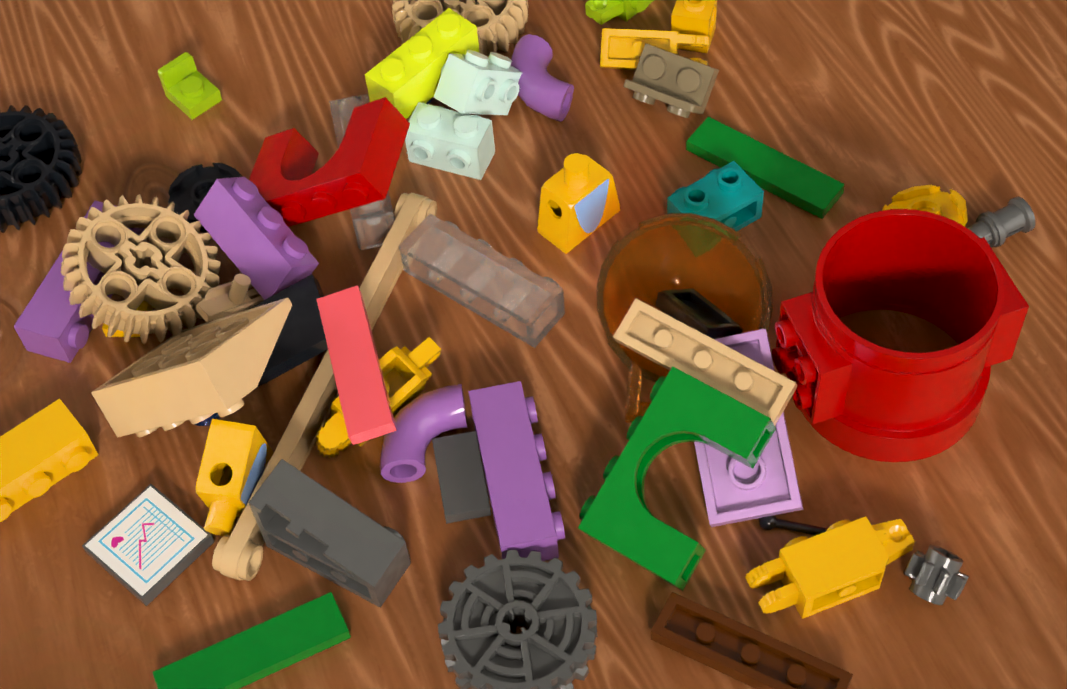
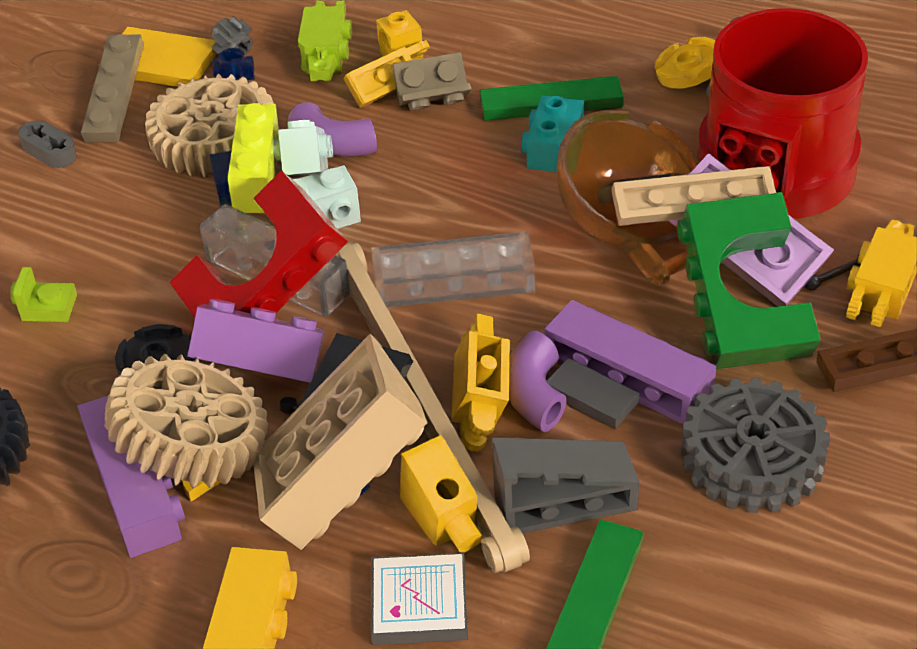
camera: 45 degrees left, 10 degrees down
(228, 299) = (278, 399): tan piece -> none
(356, 365) = (460, 353): coral tile -> none
(576, 202) = (463, 165): yellow torso -> none

